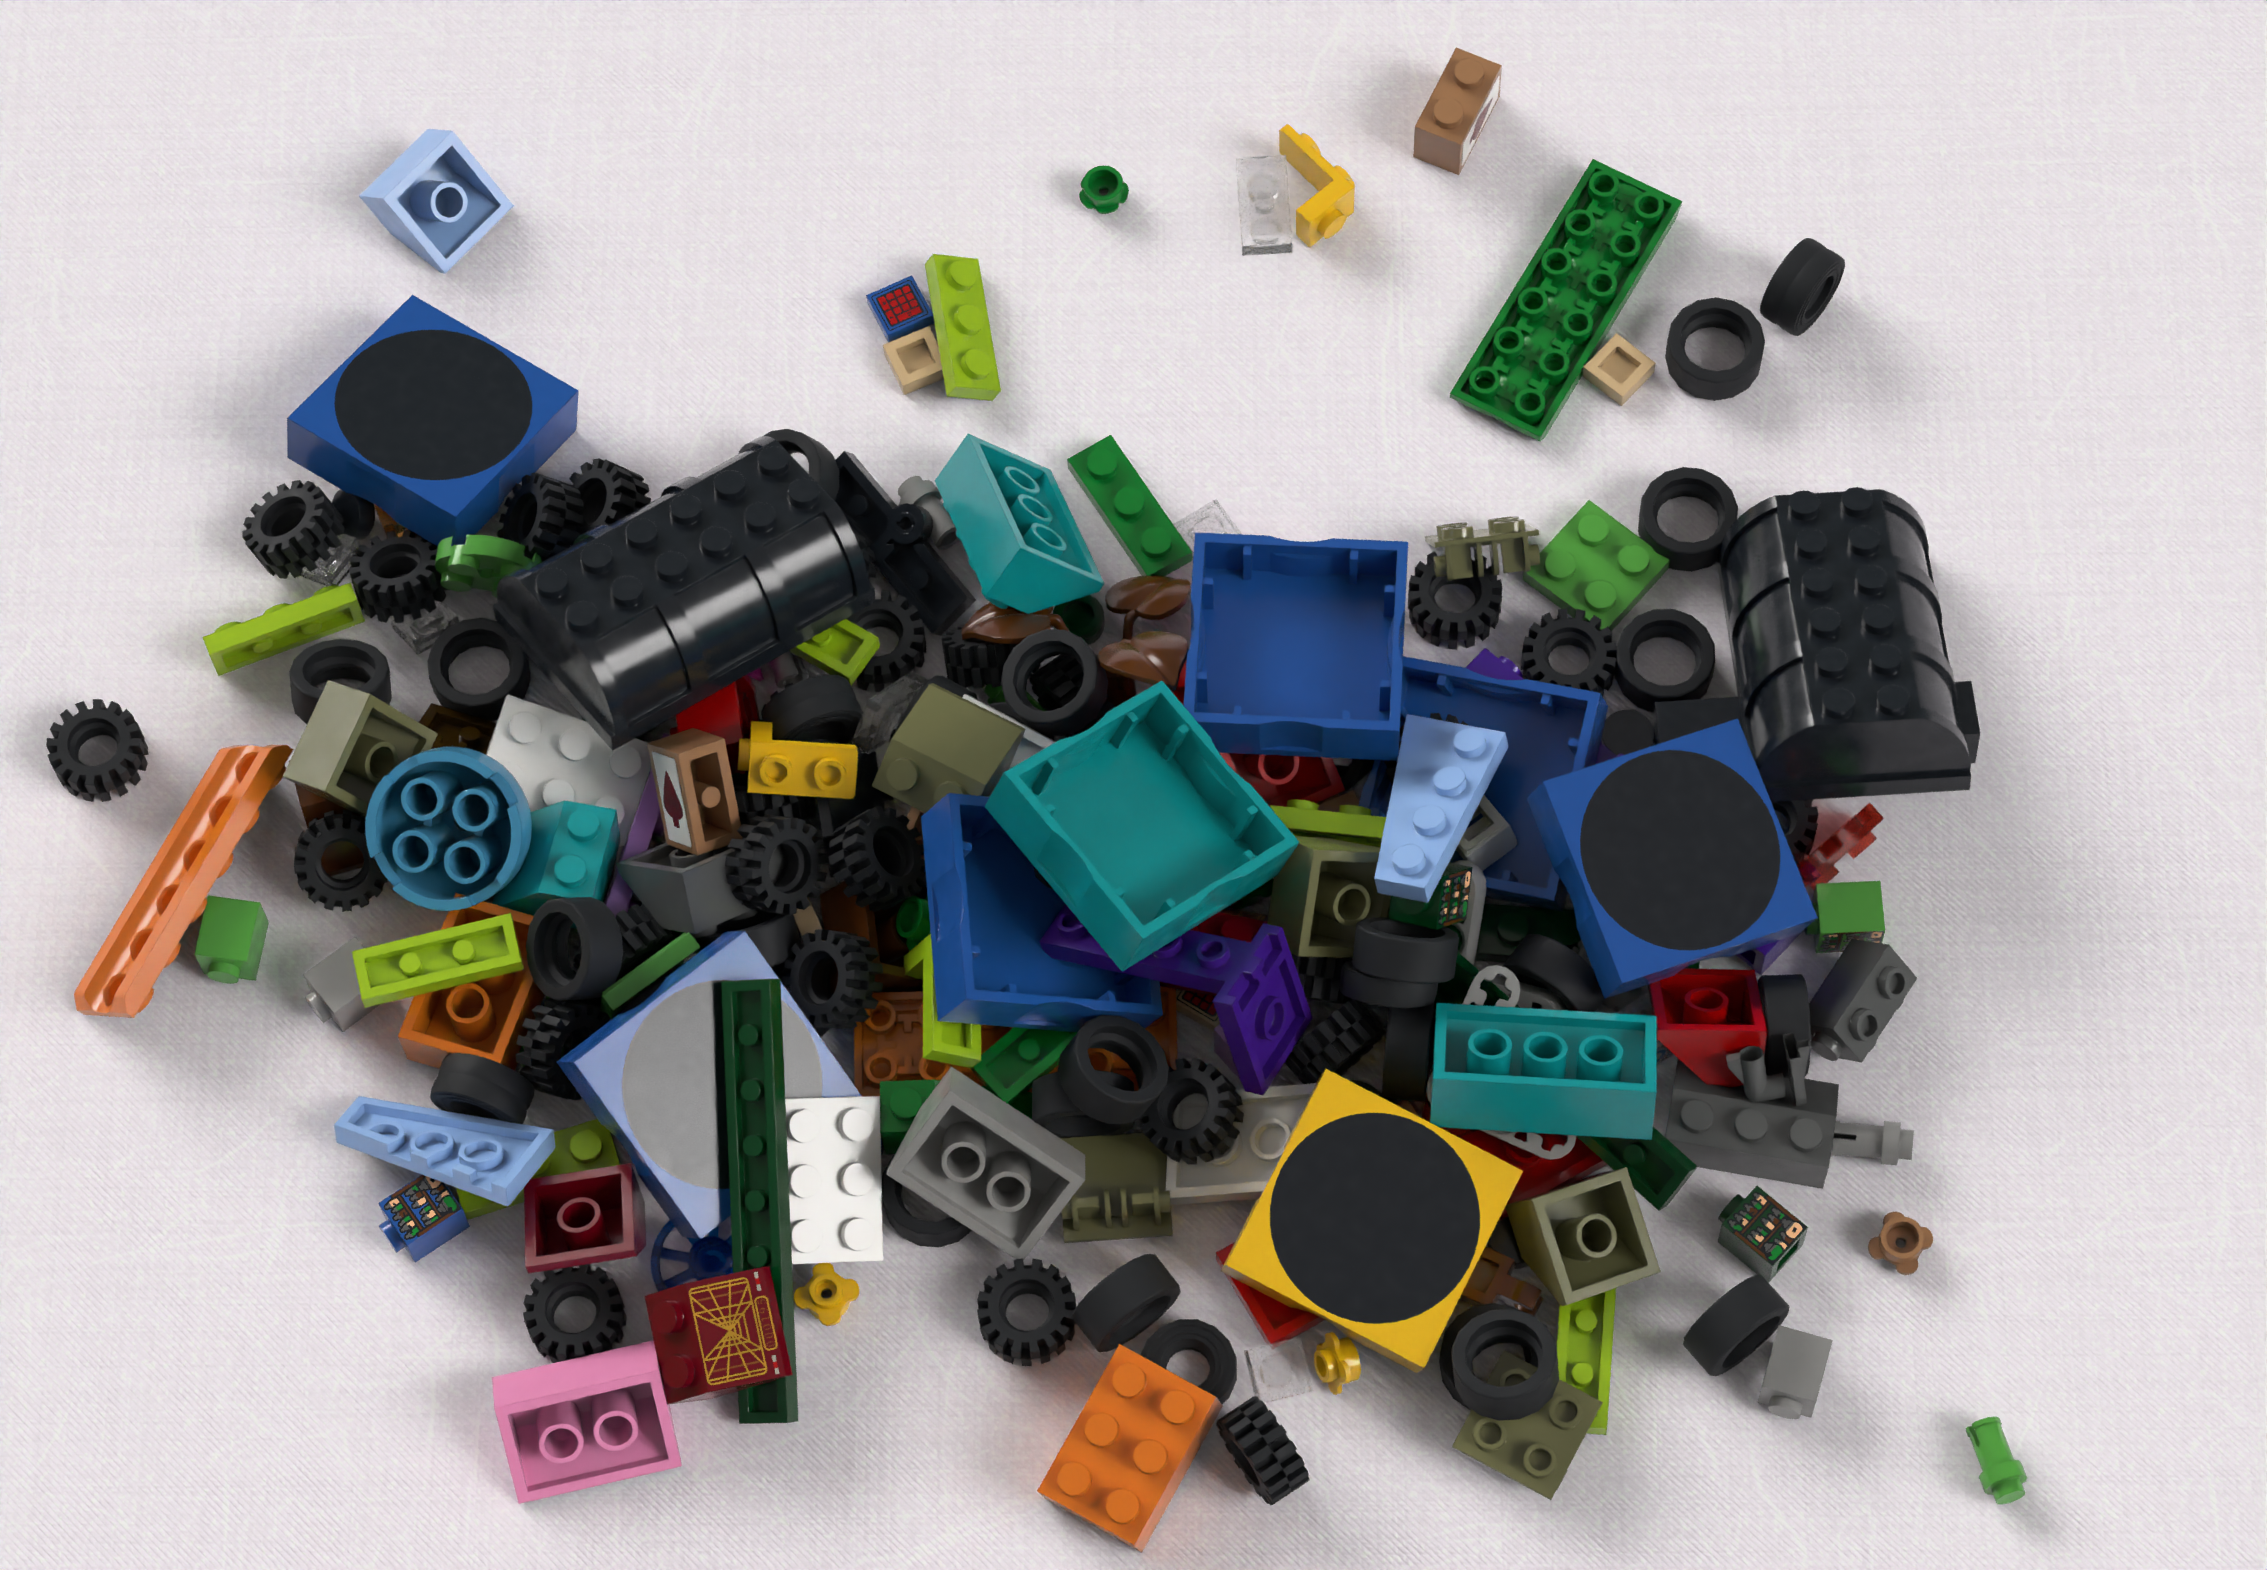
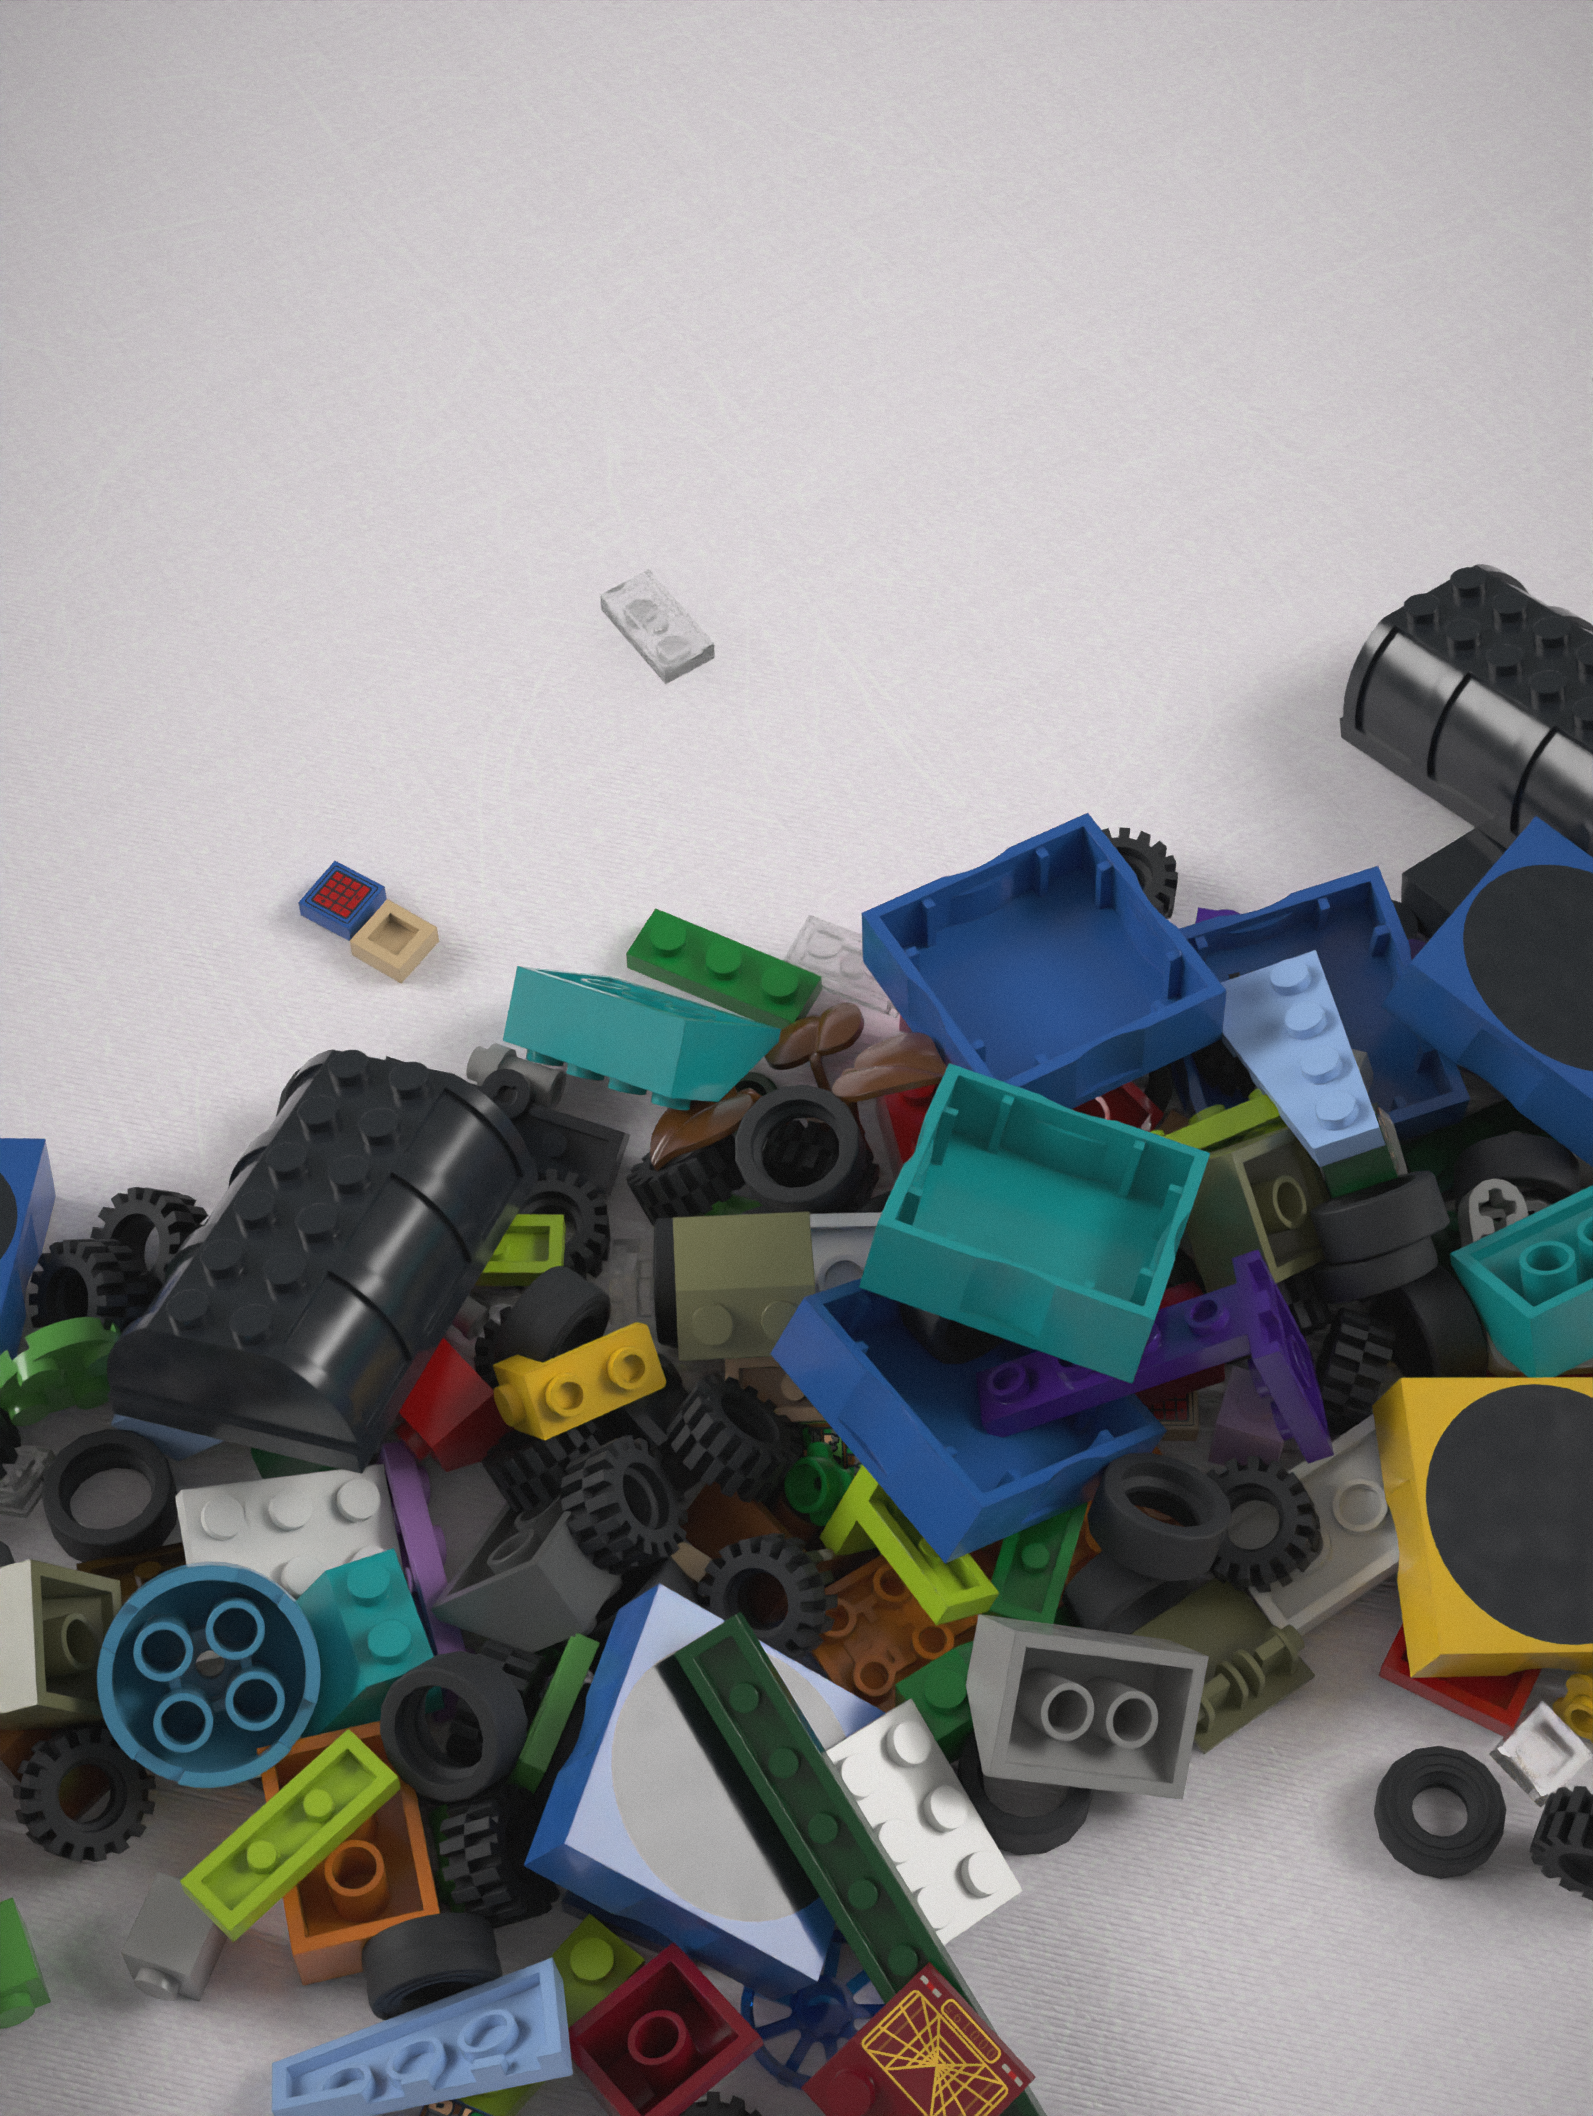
camera: 35 degrees left, 10 degrees down
(695, 791) = (480, 1473): medium nougat brick -> none
(826, 1309) = (1002, 1952): yellow plate -> none
(962, 327) = (425, 883): lime plate -> none
(1027, 1280) = (1238, 1813): black tyre -> none
(1103, 178) = (479, 678): green plate -> none
(1126, 1302) = (1337, 1772): black tyre -> none
(1130, 1448) = (1461, 1932): orange brick -> none
(1328, 209) = (698, 573): yellow bracket -> none
(1457, 111) = (790, 455): medium nougat brick -> none
(1459, 537) = (1139, 808): olive hinge -> none
(1566, 300) = (1017, 574): green plate -> none
(1574, 632) = (1270, 857): black tyre -> none
(1596, 567) = (1233, 795): bright green plate -> none
(1619, 369) = (1113, 609): tan tile -> none
(1660, 624) = (1372, 803): black tyre -> none
(1687, 483) = (1294, 669): black tyre -> none
(1723, 315) = (1194, 512): black tyre -> none
(1802, 286) = (1240, 447): black tyre -> none

